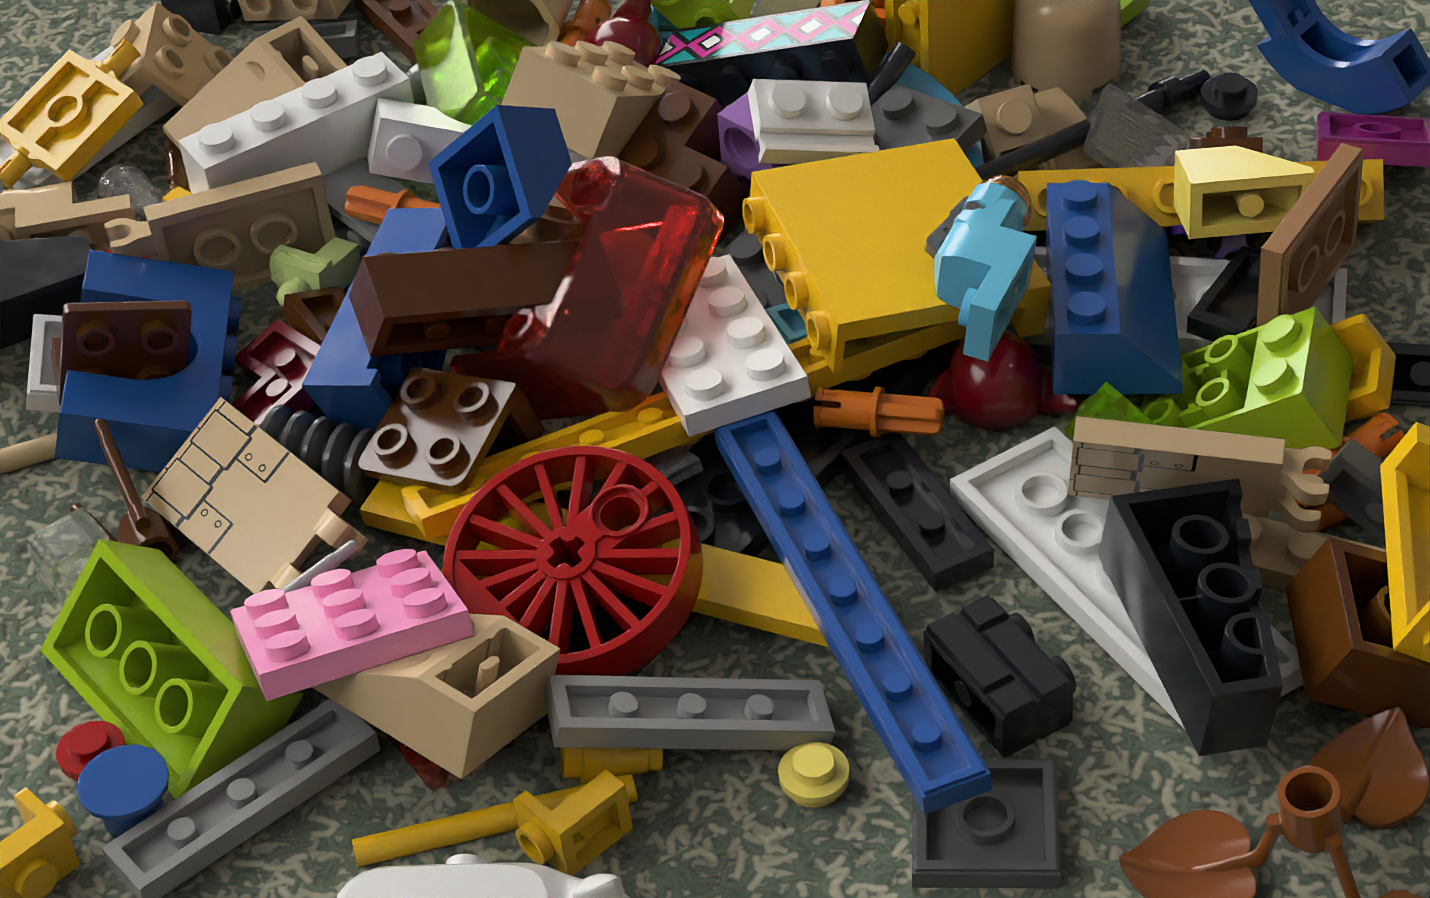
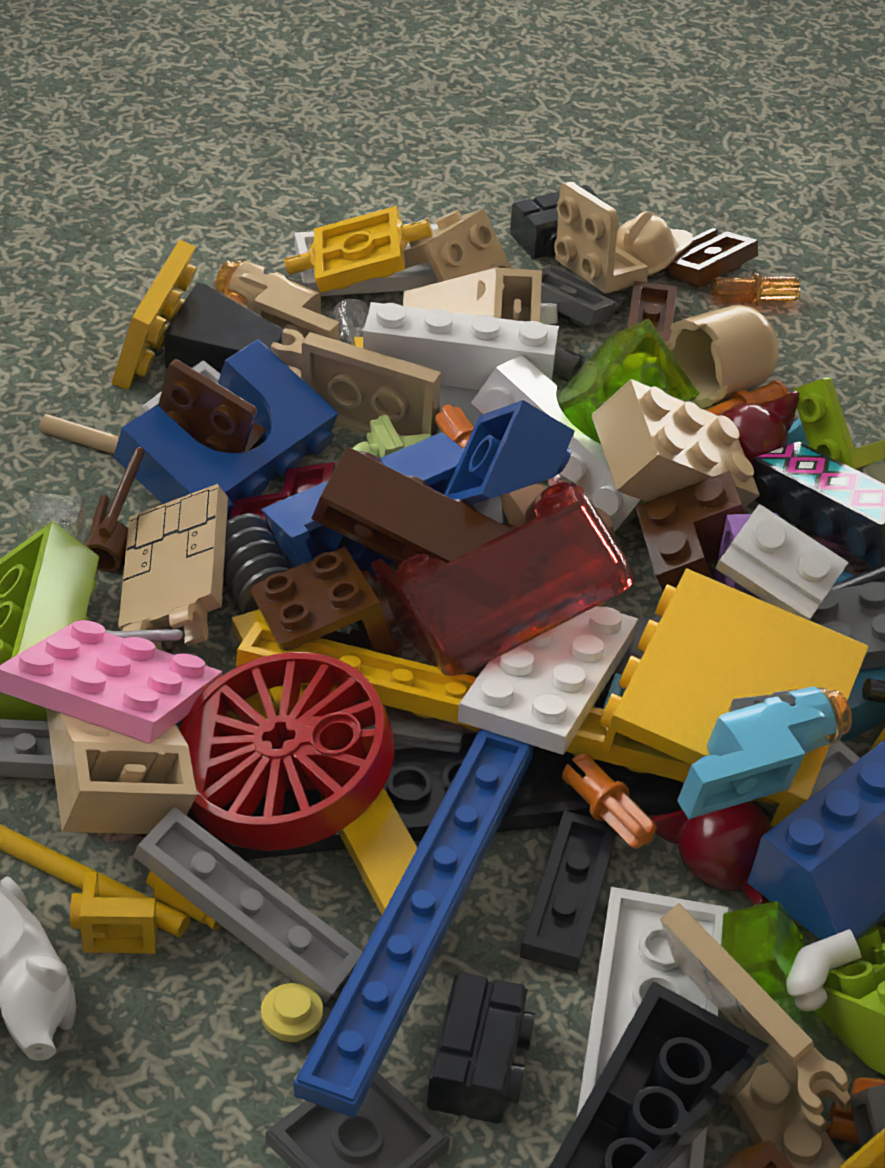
camera: 35 degrees right, 0 degrees up
(1179, 400) = (813, 965): none -> white arm

